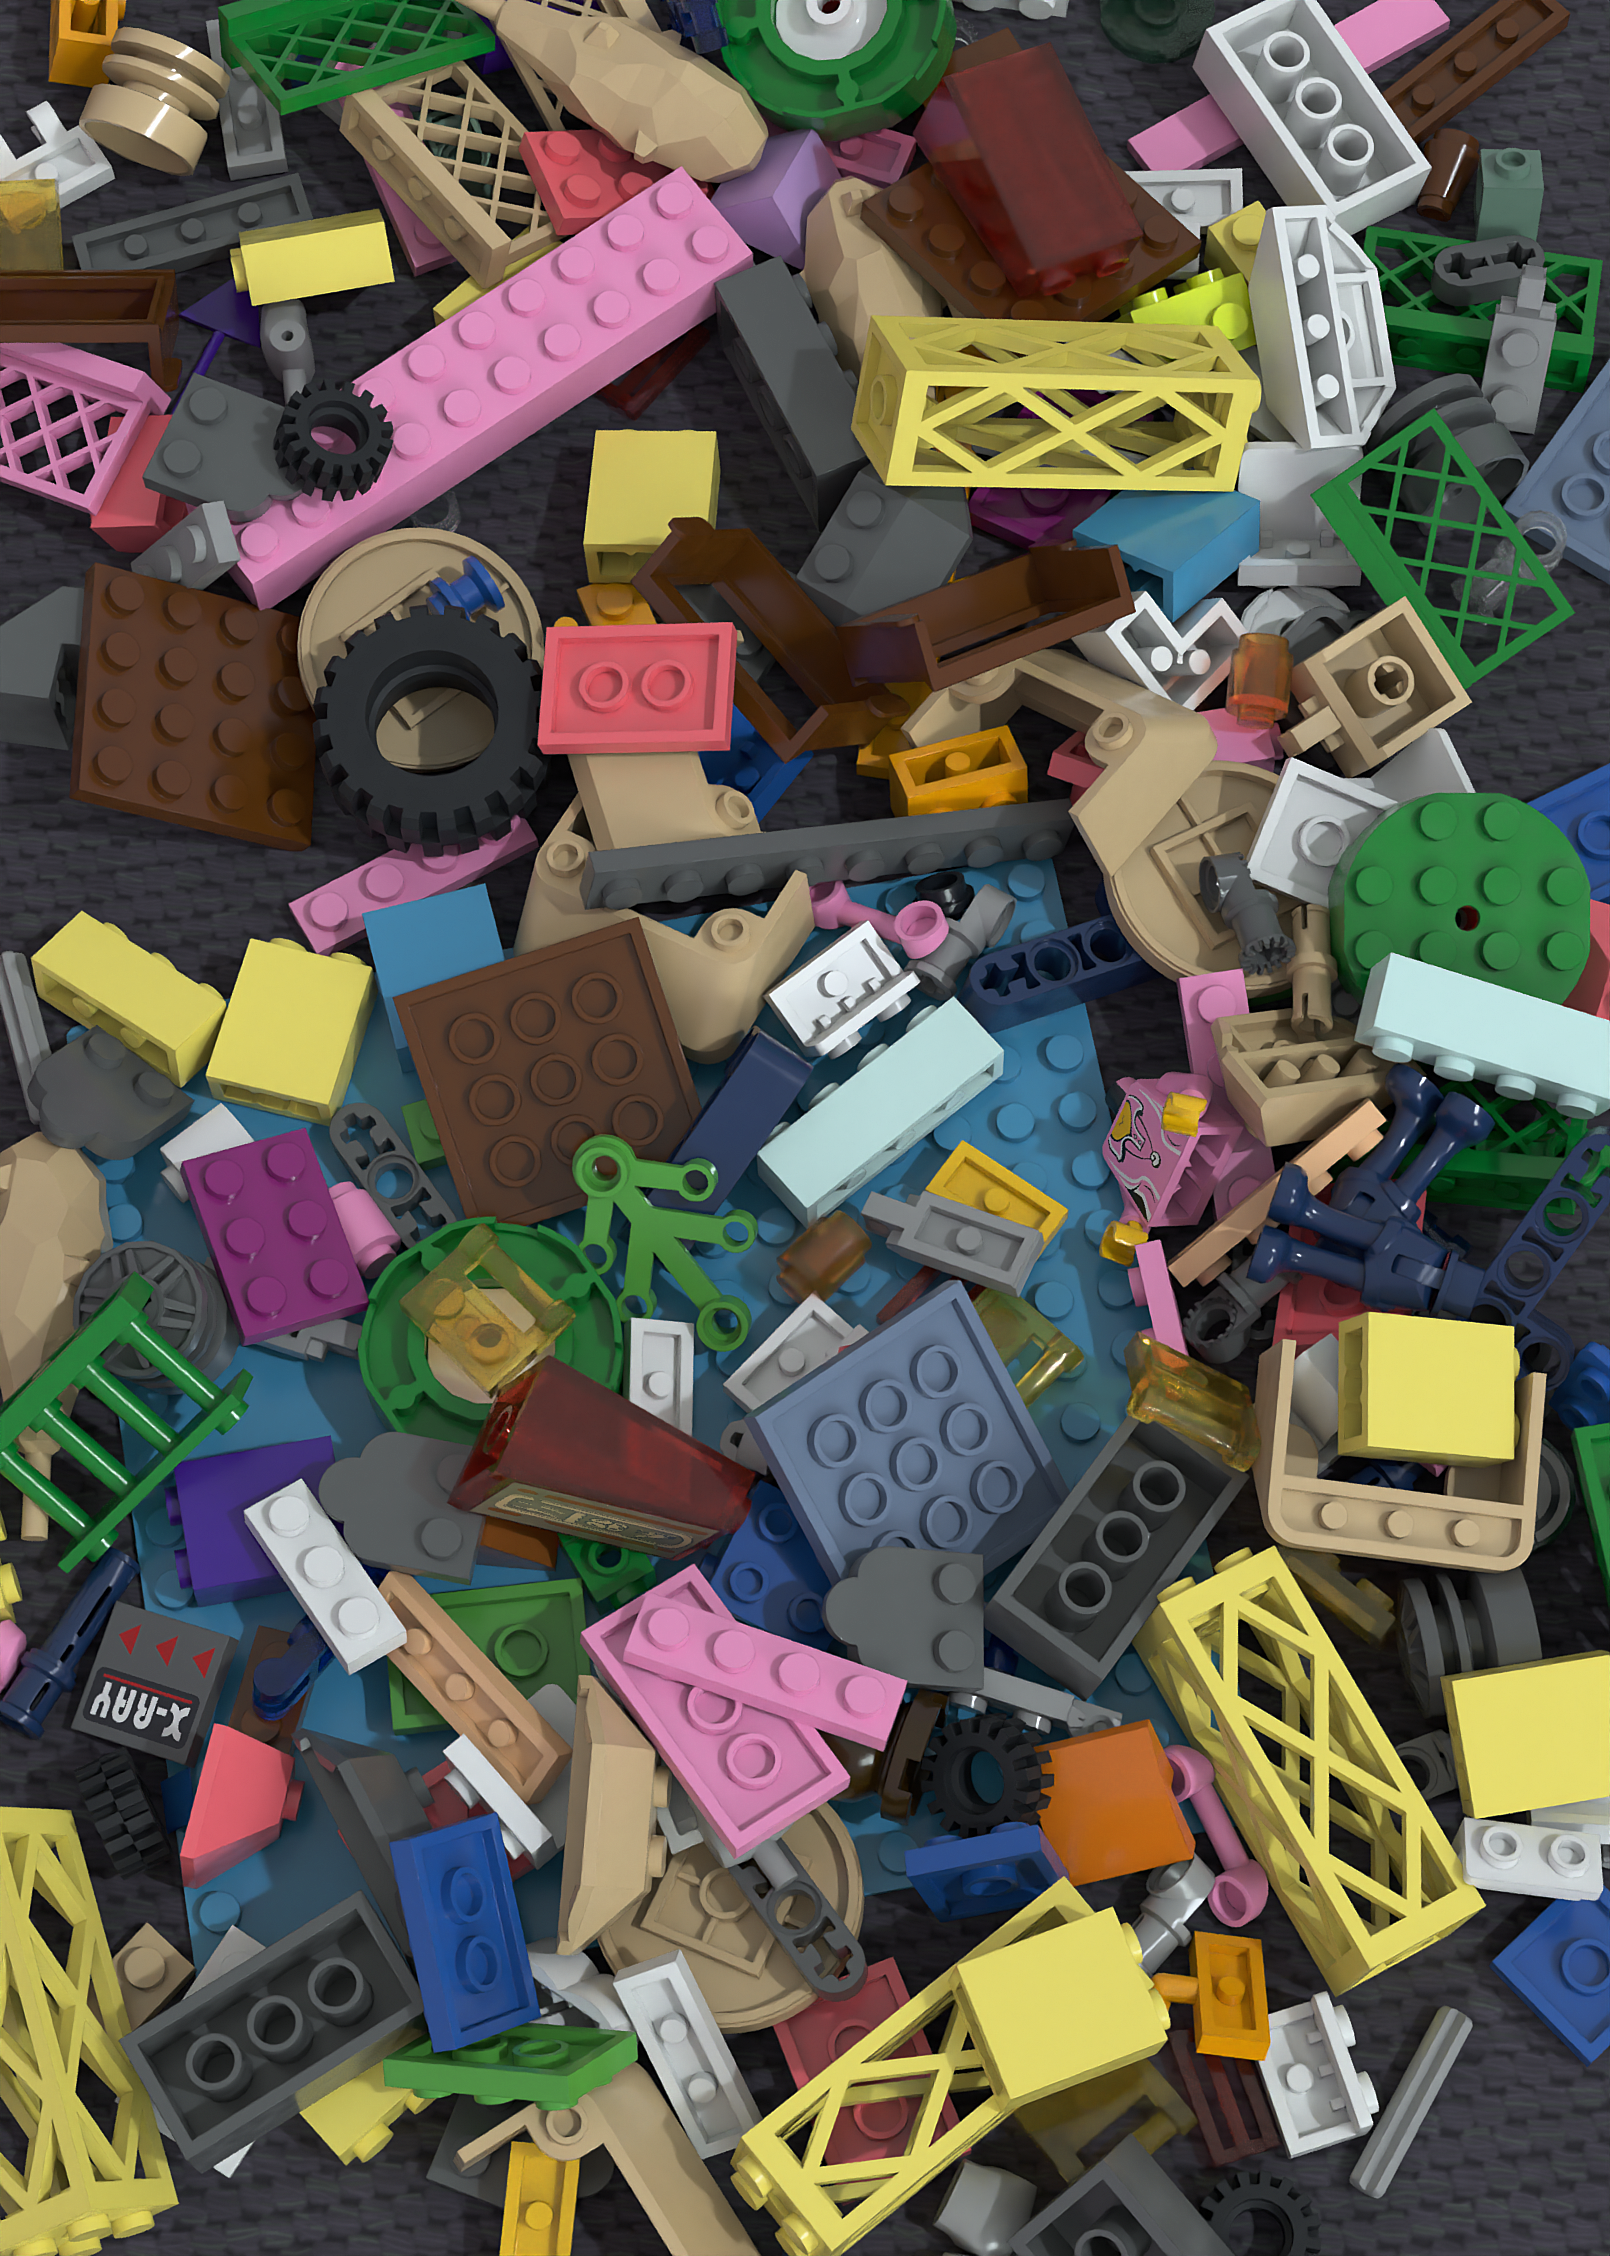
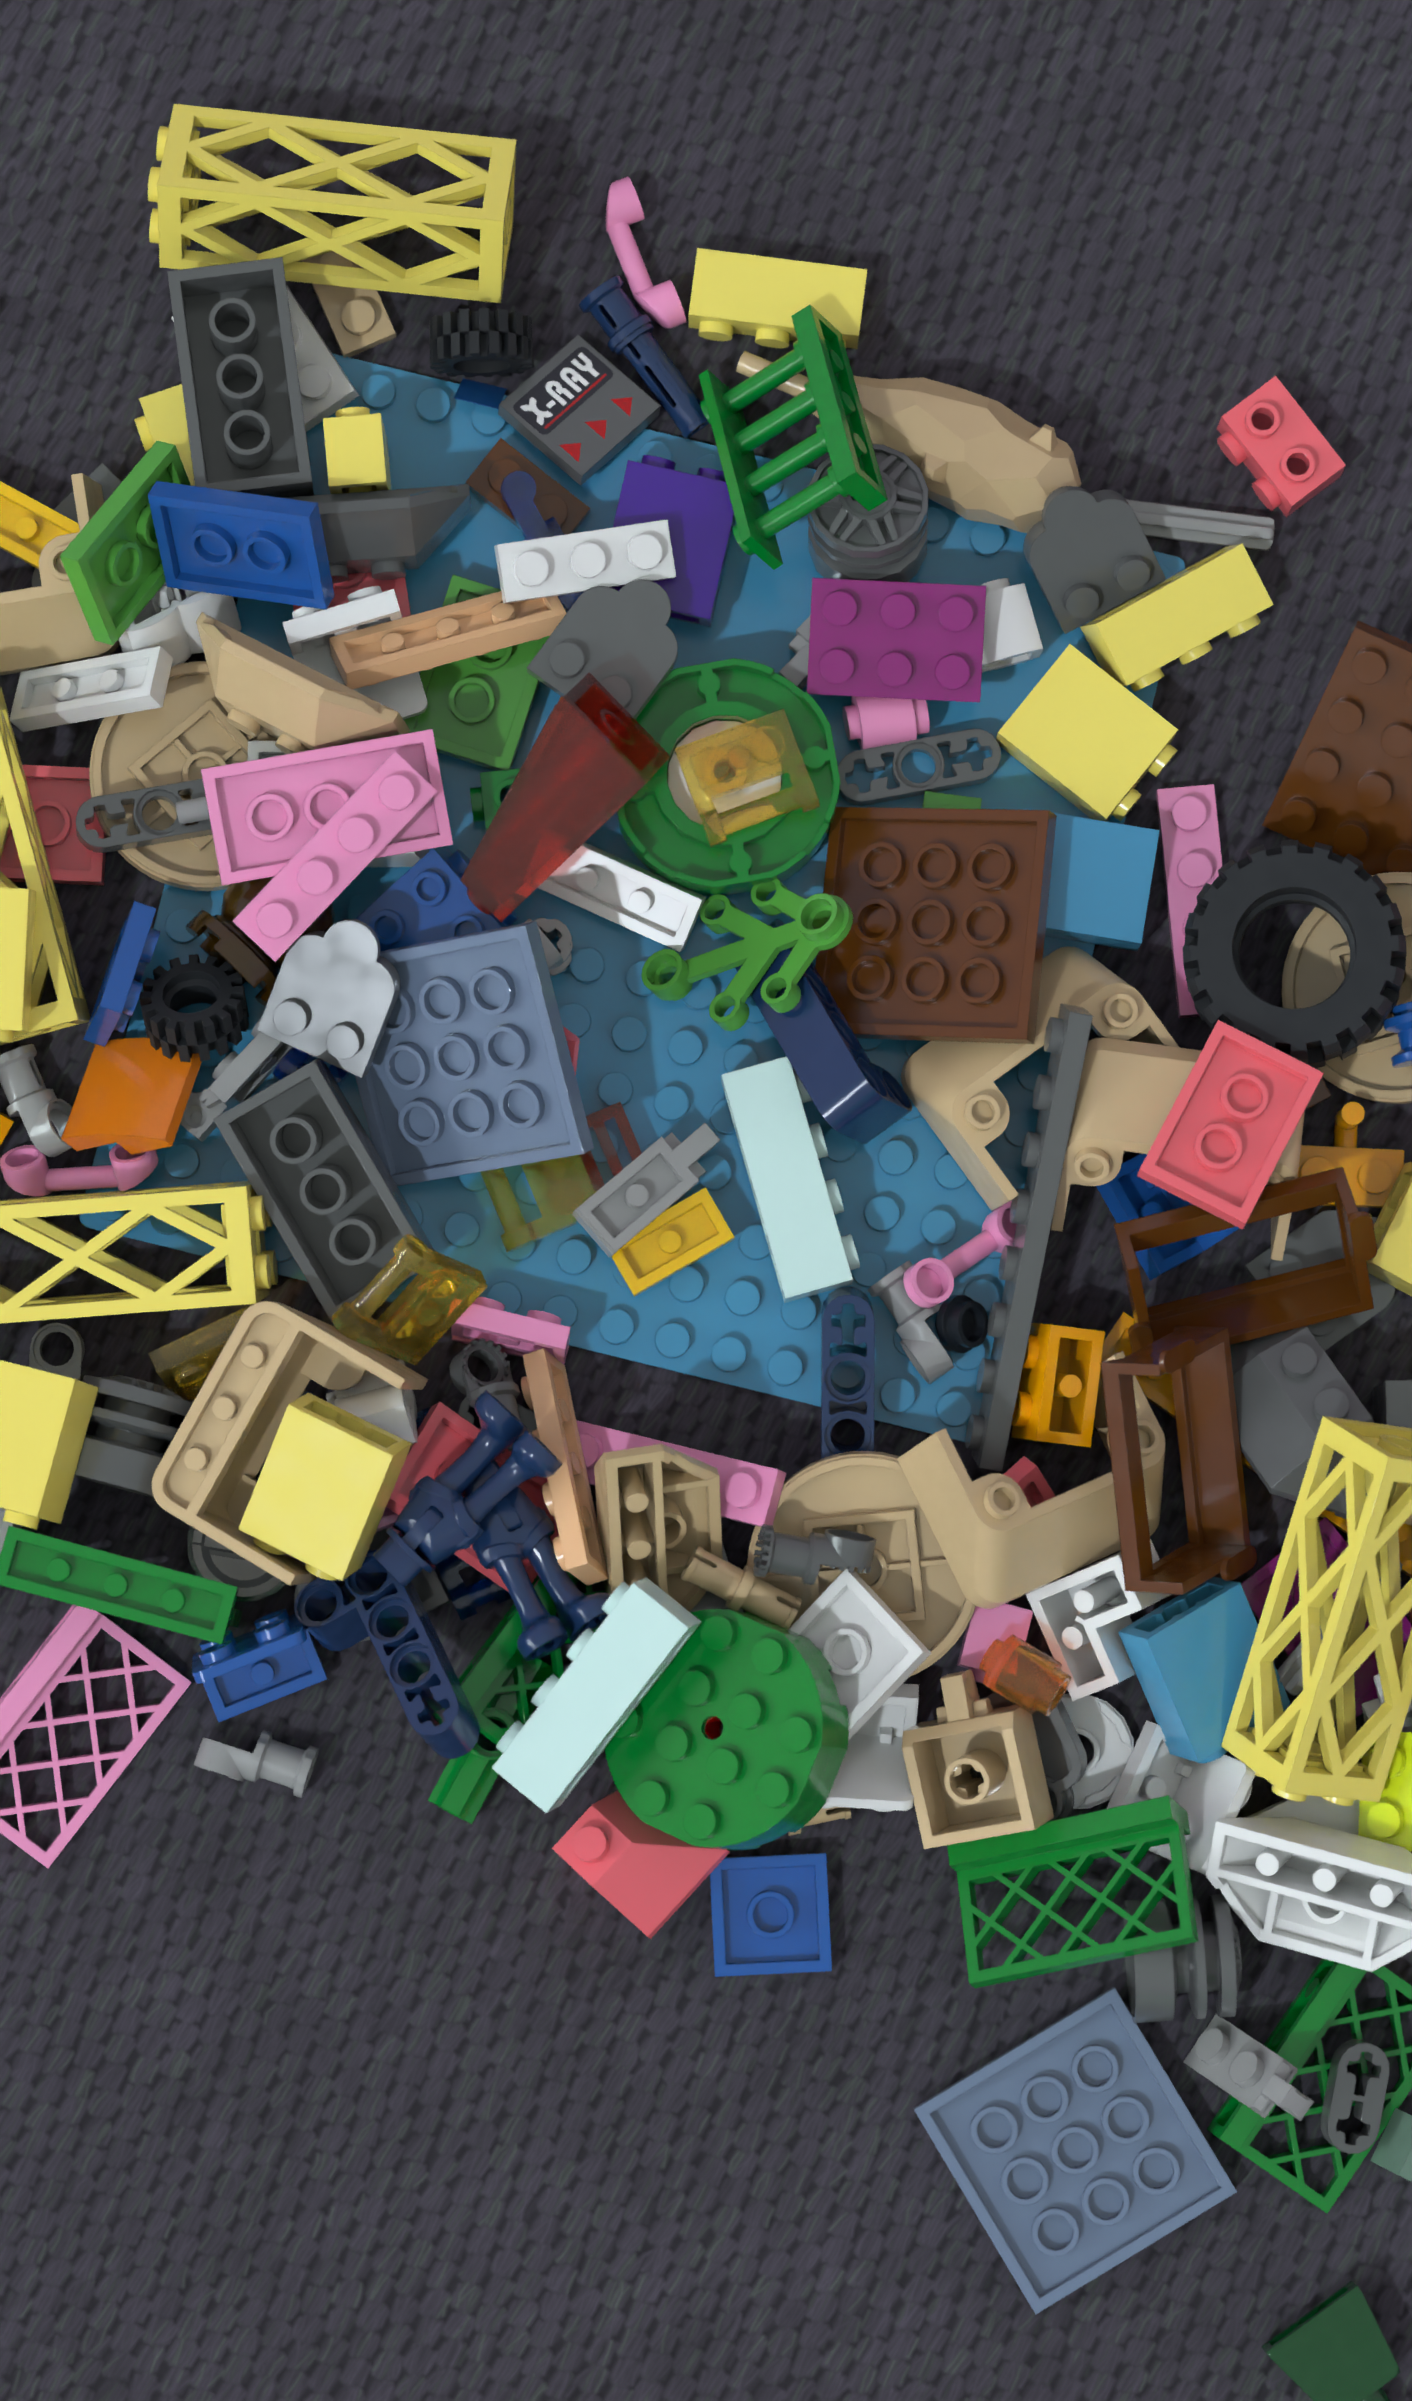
camera: 110 degrees right, 15 degrees up
(237, 1804) = (442, 428): coral slope -> none
(306, 1873) = (356, 451): none -> light yellow brick
(791, 1352) = (604, 1017): white bracket -> none
(823, 1257) = (685, 1078): clear orange brick -> none
(841, 992) = (911, 1199): white bracket -> none
(1165, 1155) = (644, 1395): bright pink torso -> none
(1490, 594) = (1051, 1943): clear connector -> none

